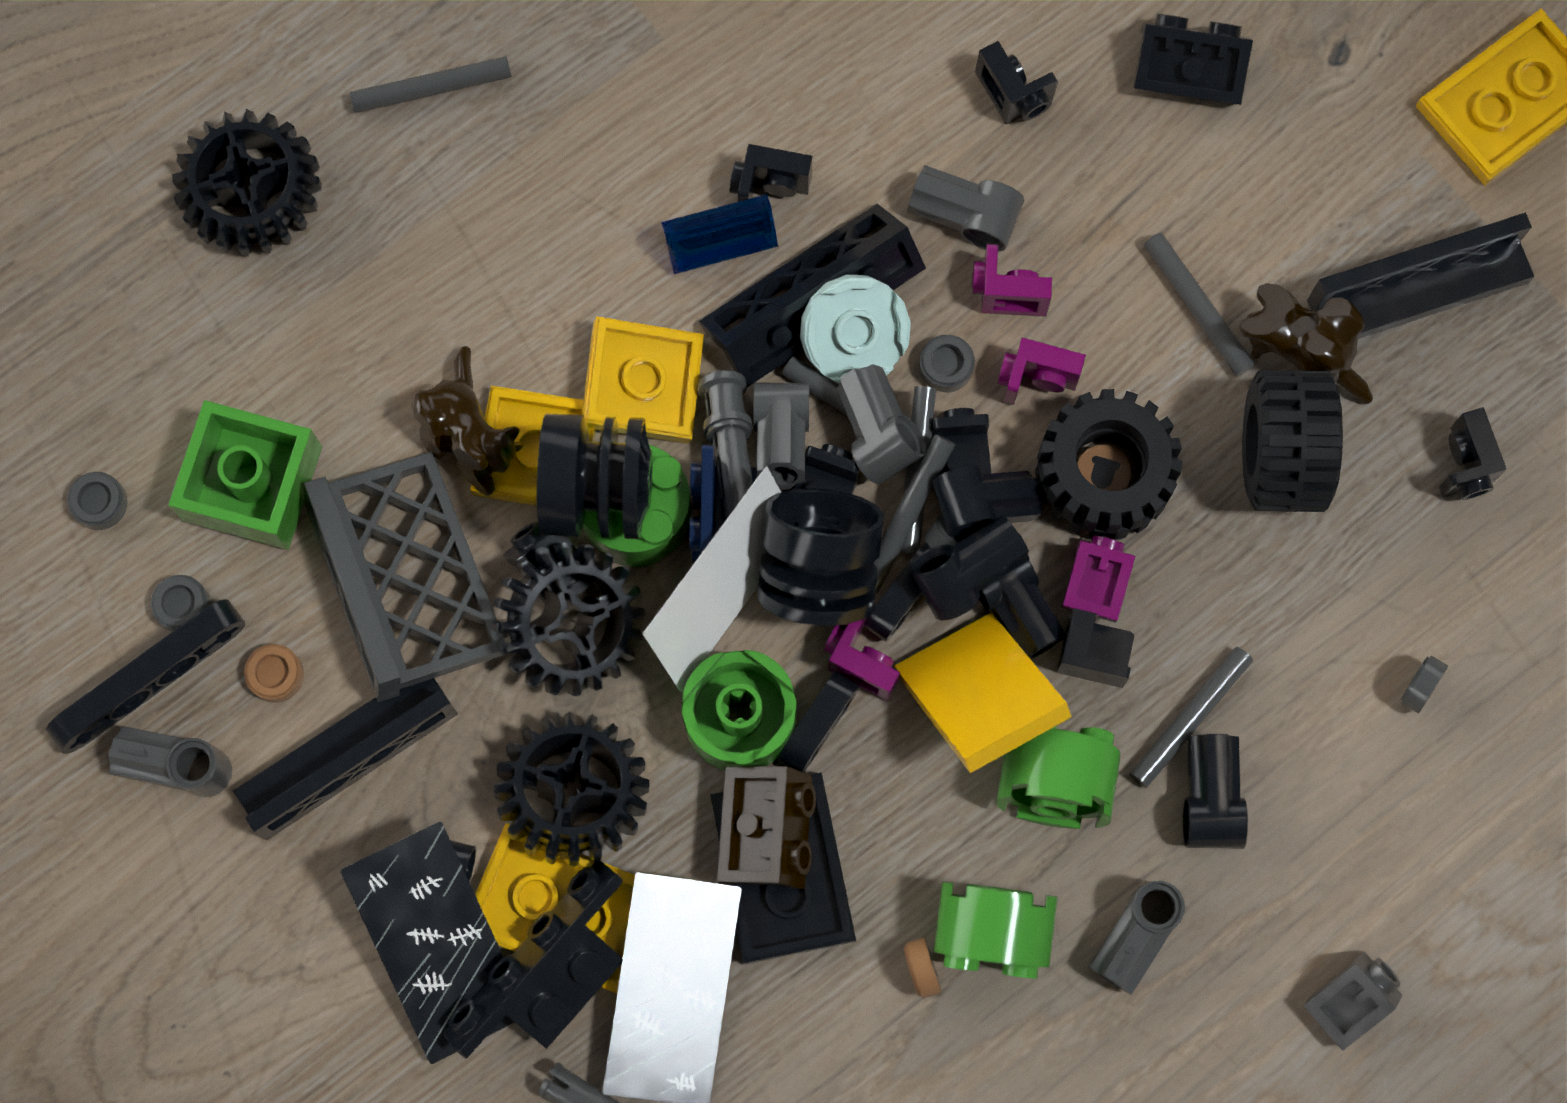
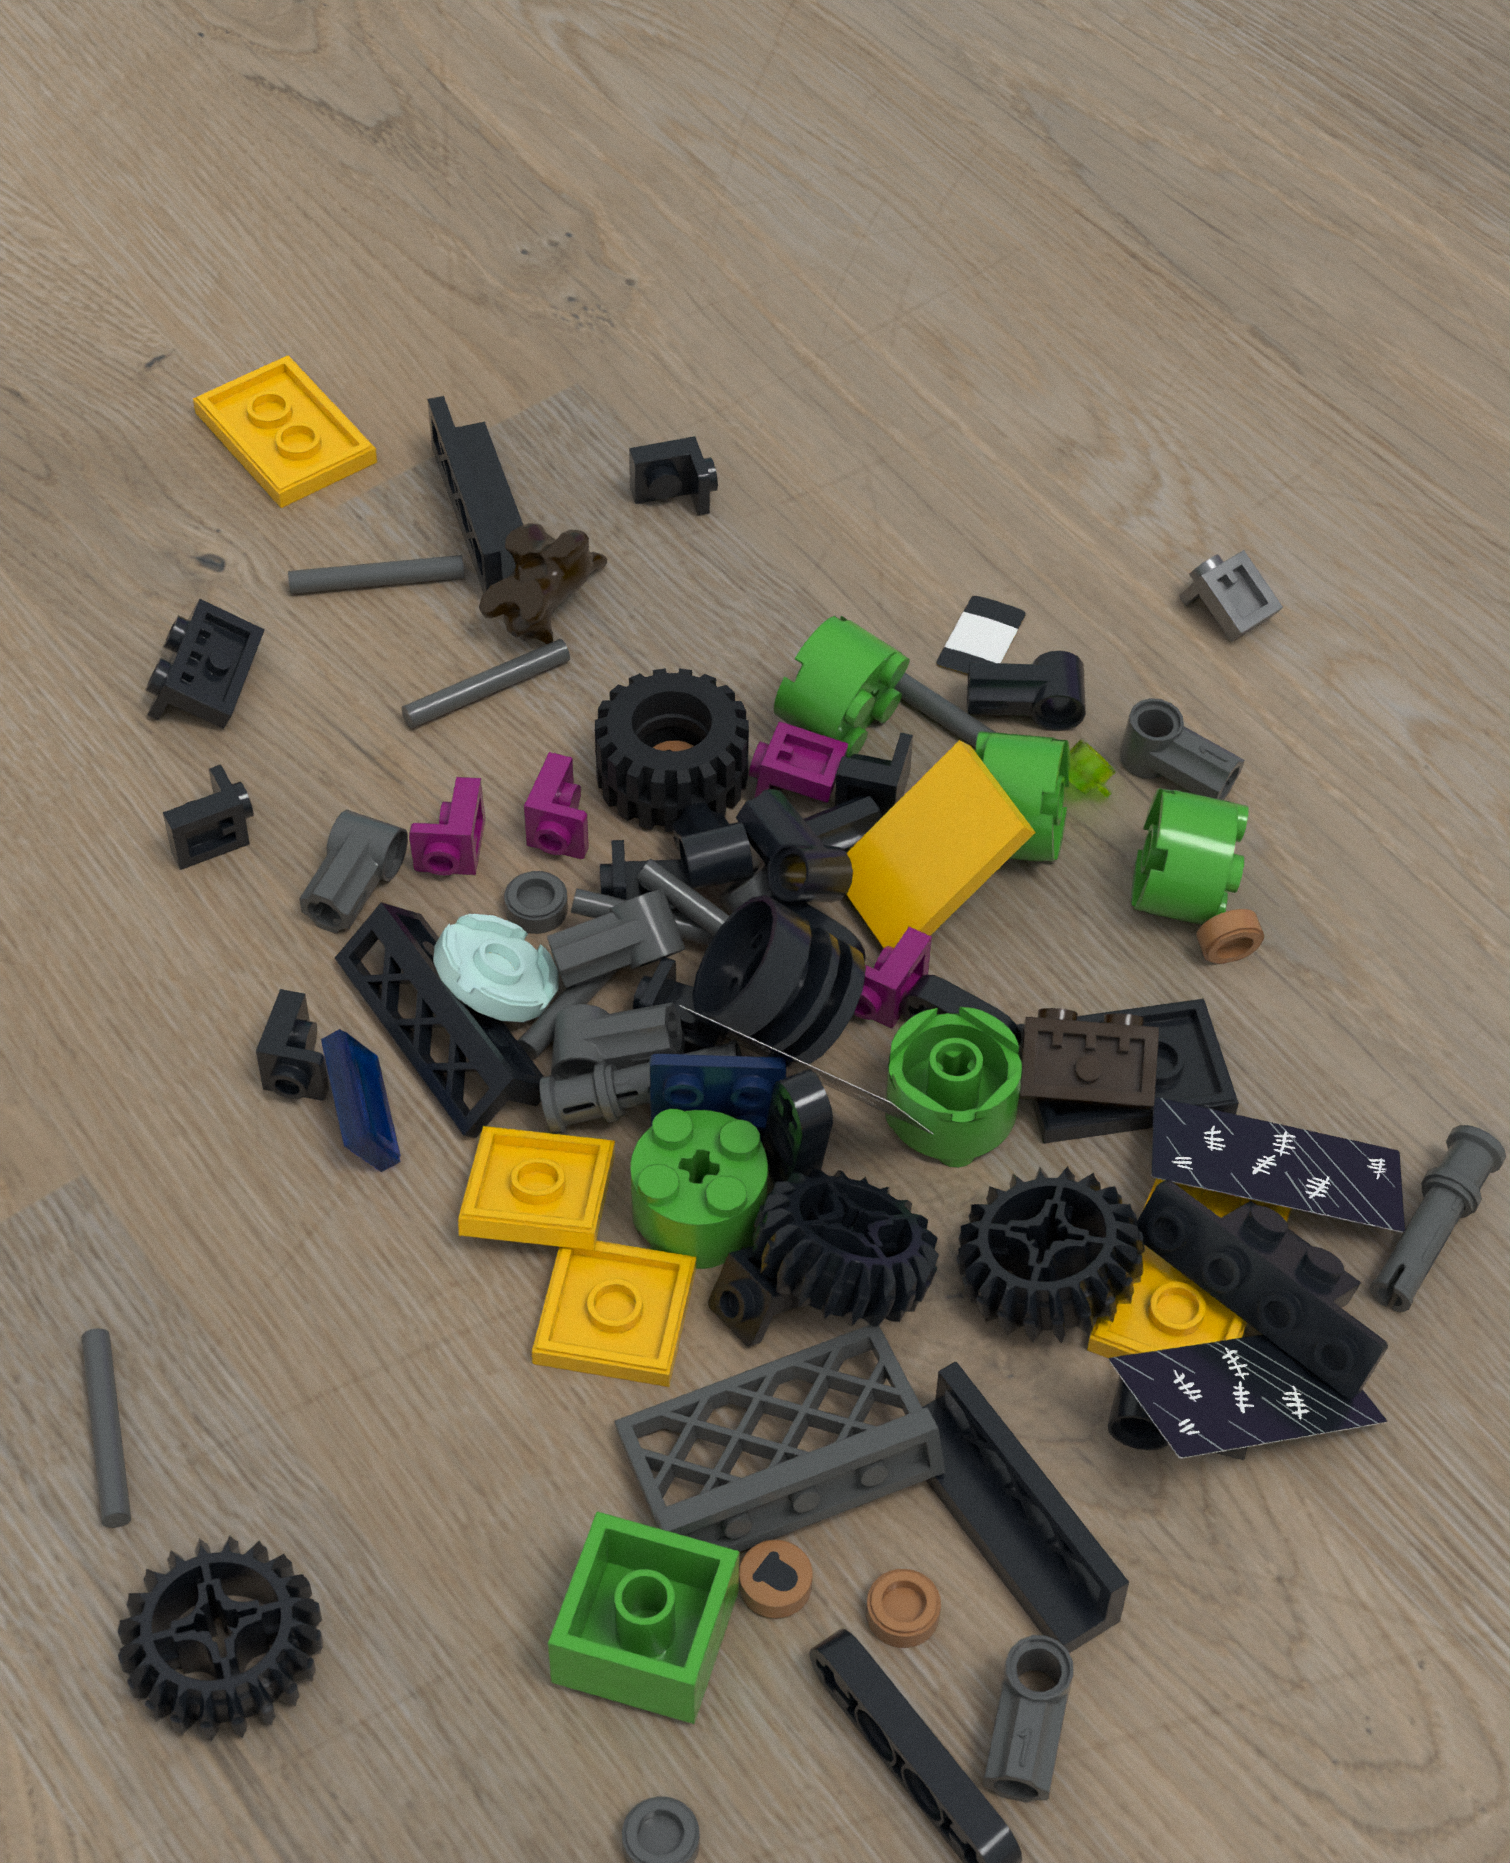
camera: 90 degrees left, 25 degrees down
(178, 600) = (809, 1725): dark grey tile -> none
(297, 577) = (775, 1579): none -> medium nougat tile
(455, 424) = (586, 1372): dark brown animal -> none
(592, 476) = (693, 1155): black wheel -> none
(653, 570) = (797, 1126): none -> black beam
(1118, 845) = (1089, 769): none -> clear neon green plate
(1187, 613) = (842, 683): none -> bright green brick
(1292, 441) = (660, 584): black tyre -> none
(1296, 757) = (981, 634): none -> sticker
(1328, 195) = (376, 574): none -> dark grey bar
(1423, 683) = (909, 525): dark grey tile -> none

